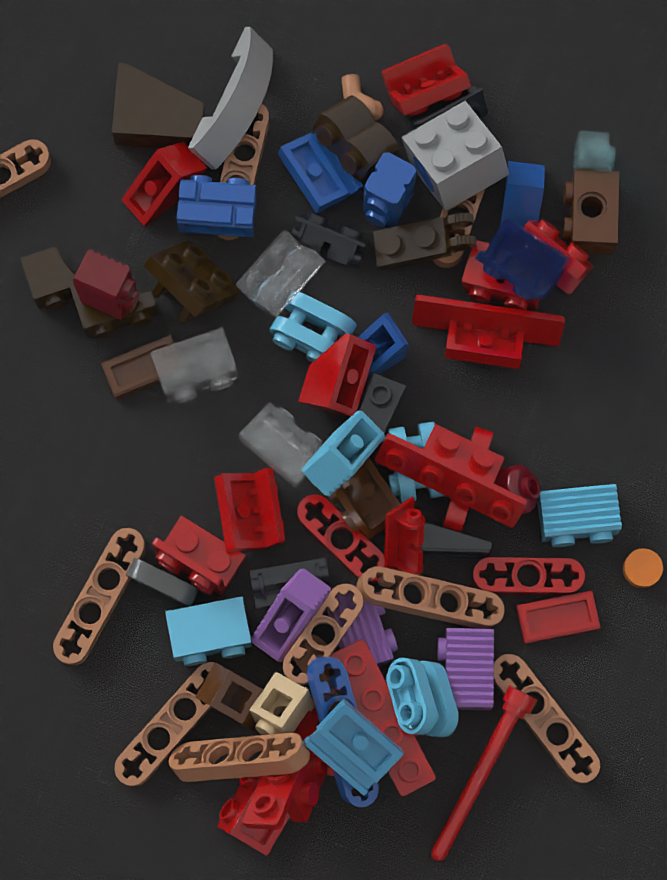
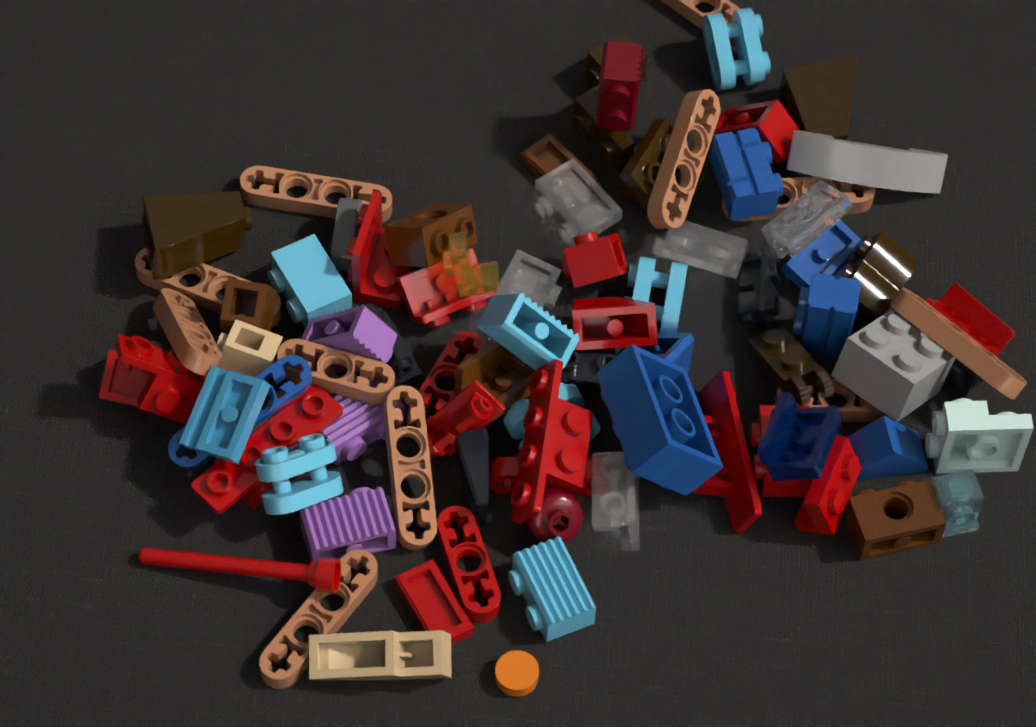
camera: 70 degrees right, 20 degrees down
(81, 154) = (746, 30): none -> medium azure brick
(115, 724) = (192, 229): none -> dark brown slope
(193, 254) = (668, 200): none -> nougat beam
(197, 505) = (423, 234): none -> reddish brown brick
(257, 481) = (470, 278): none -> clear yellow bracket
(266, 369) = (593, 259): none -> red brick
(285, 172) = (806, 219): none -> clear bracket
(352, 86) = (925, 272): nougat arm -> none
(457, 94) = (958, 343): none -> nougat beam
(464, 371) = (658, 420): none -> blue brick
(511, 432) = (615, 498): none -> clear bracket
(542, 120) = (972, 439): none -> light aqua plate
(603, 677) = (380, 655): none -> tan slope

